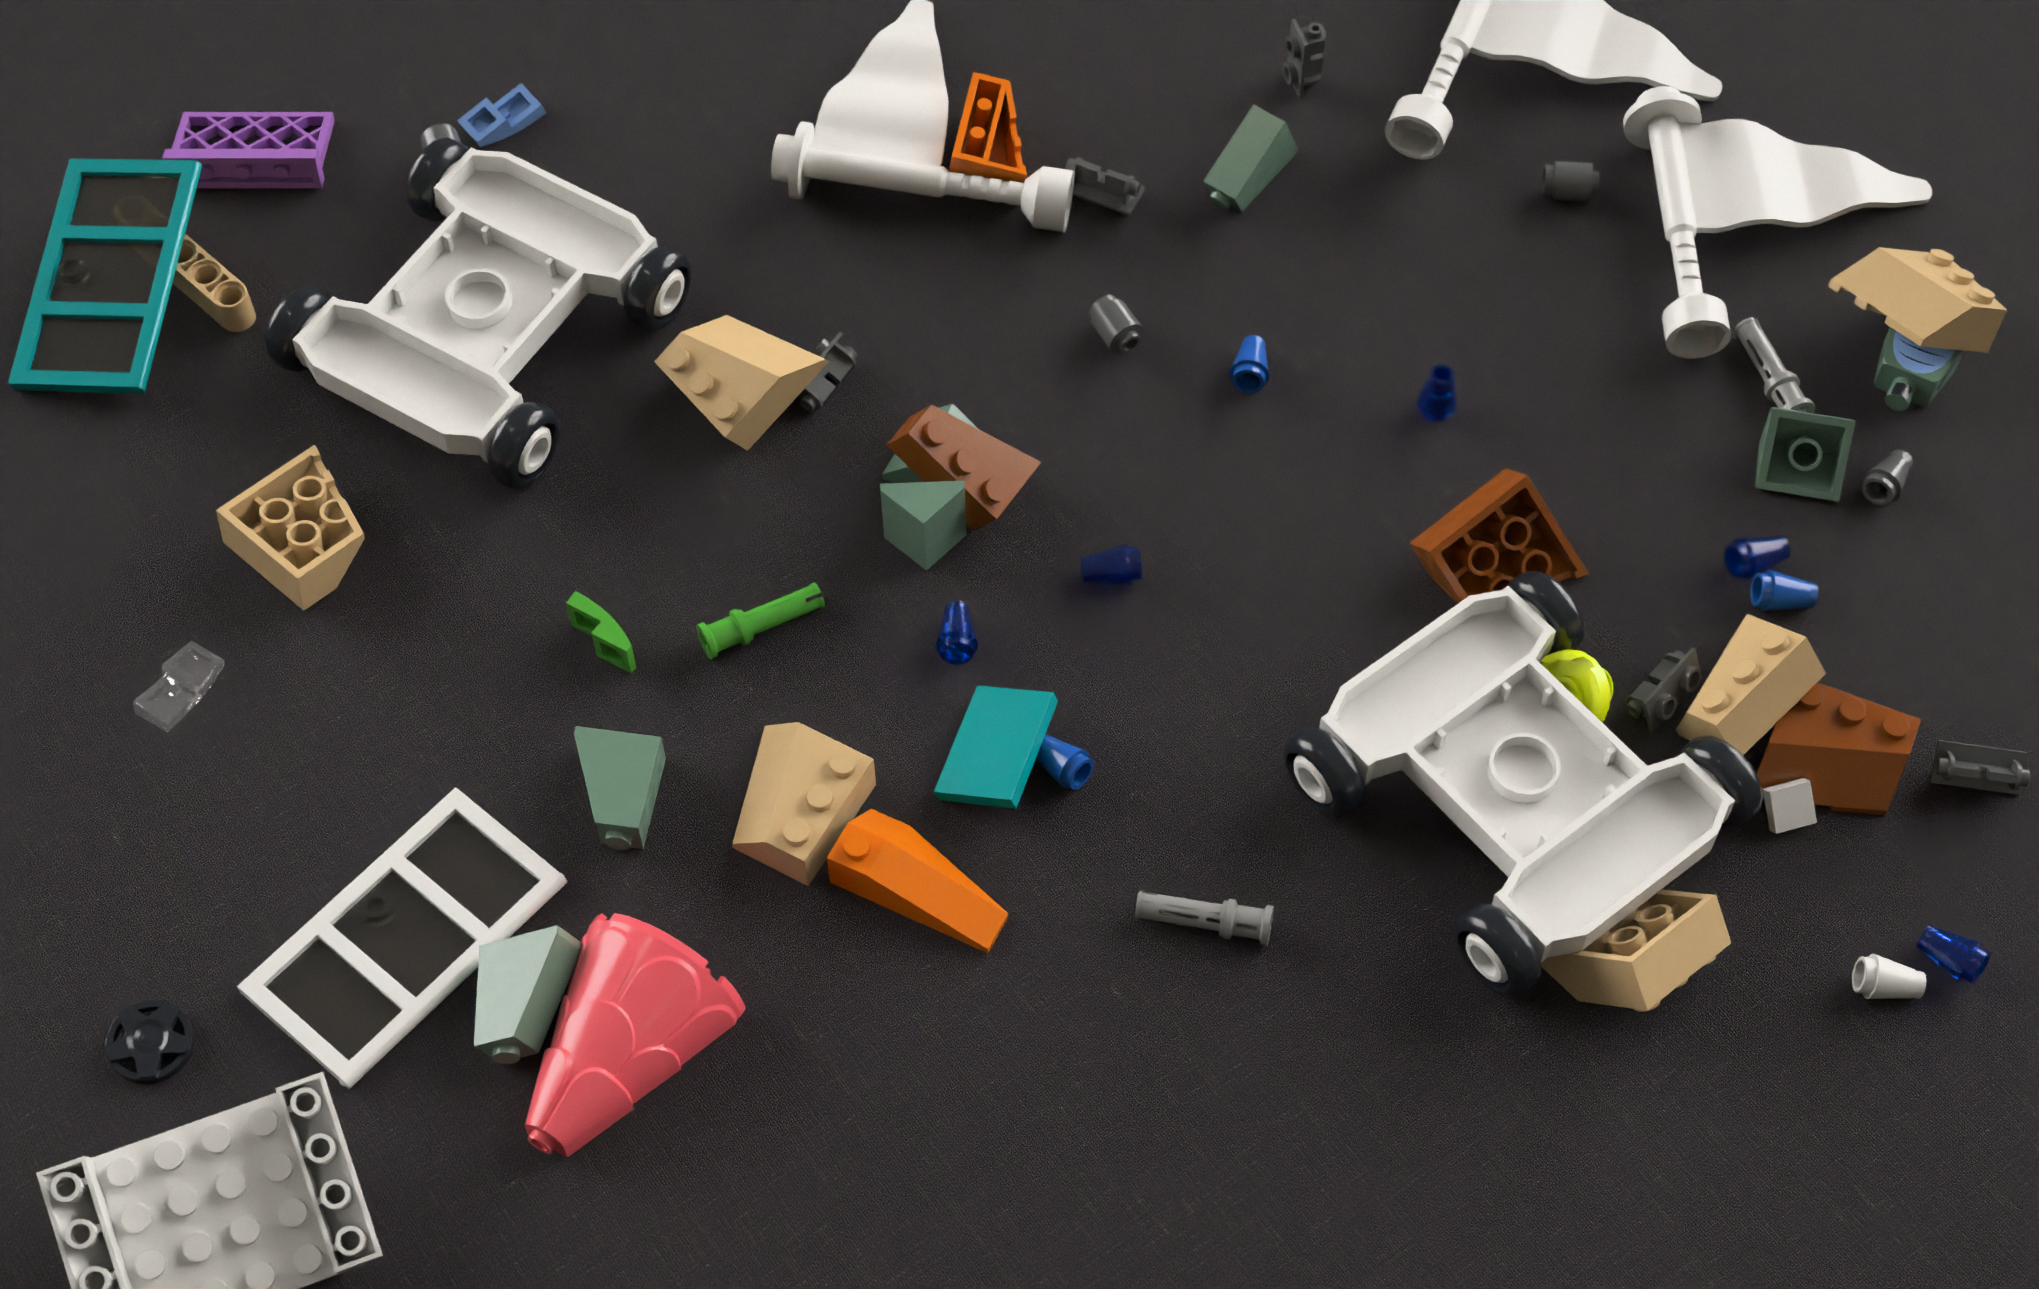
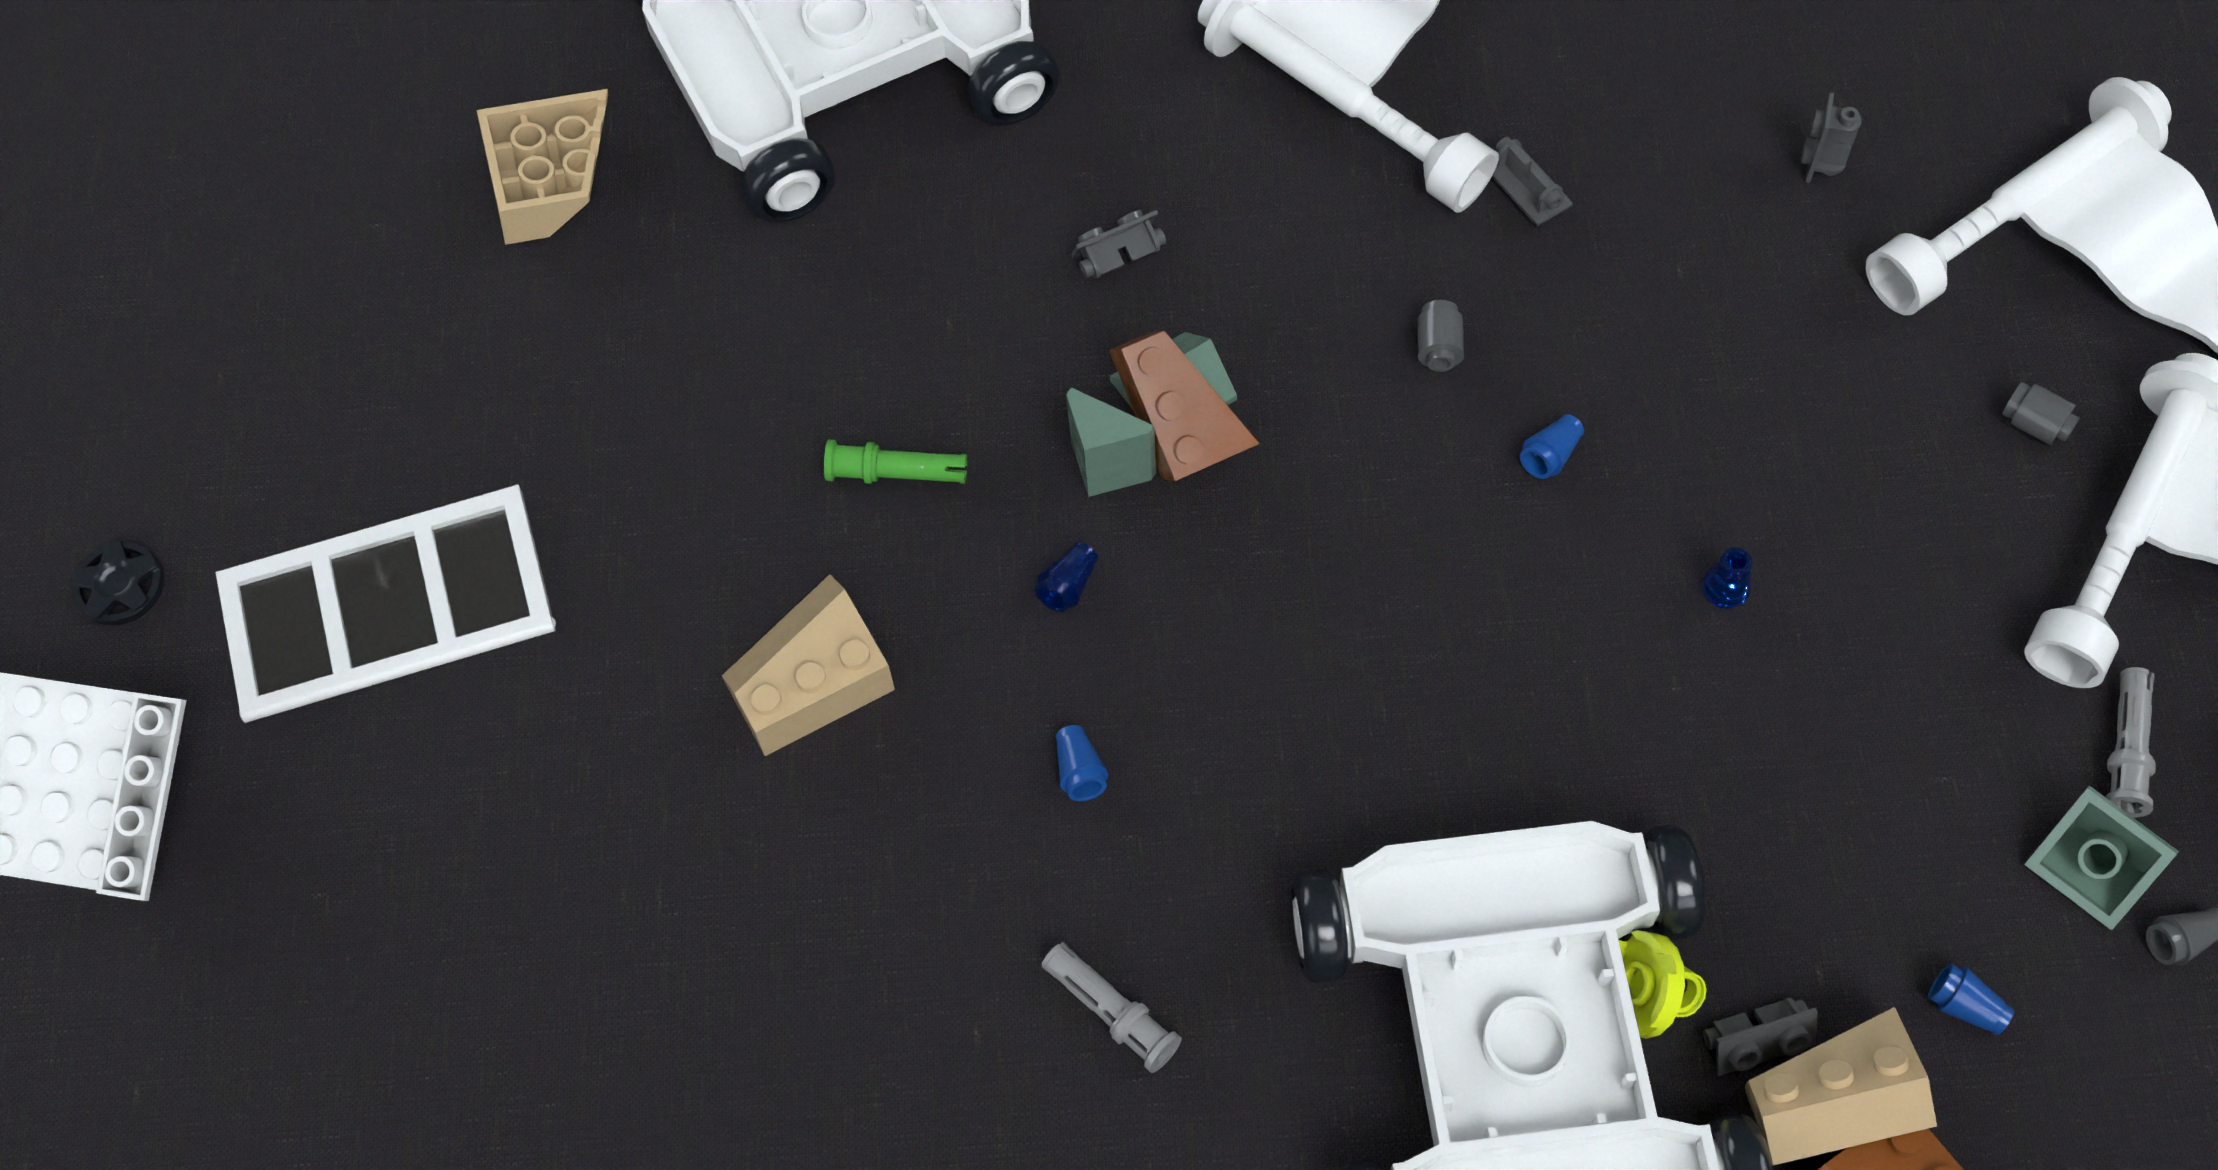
camera: 35 degrees right, 5 degrees up
(183, 684) = (370, 258): clear slope -> none
(521, 990) = (431, 717): slope -> none
(607, 635) = (742, 404): bright green slope -> none
(621, 782) = (656, 561): sand green slope -> none
(623, 1028) = (492, 809): coral cone -> none
(738, 375) = (1027, 208): tan wedge -> none
(911, 877) = (860, 797): orange wedge -> none
(988, 132) = (1437, 71): orange wedge -> none
(996, 746) = (1024, 715): teal tile -> none
(1113, 566) = (1268, 589): clear blue cone -> none
(1250, 160) = (1696, 226): sand green slope -> none
(1495, 538) = (1678, 771): dark orange wedge -> none
(1753, 555) = (1967, 941): clear blue cone -> none

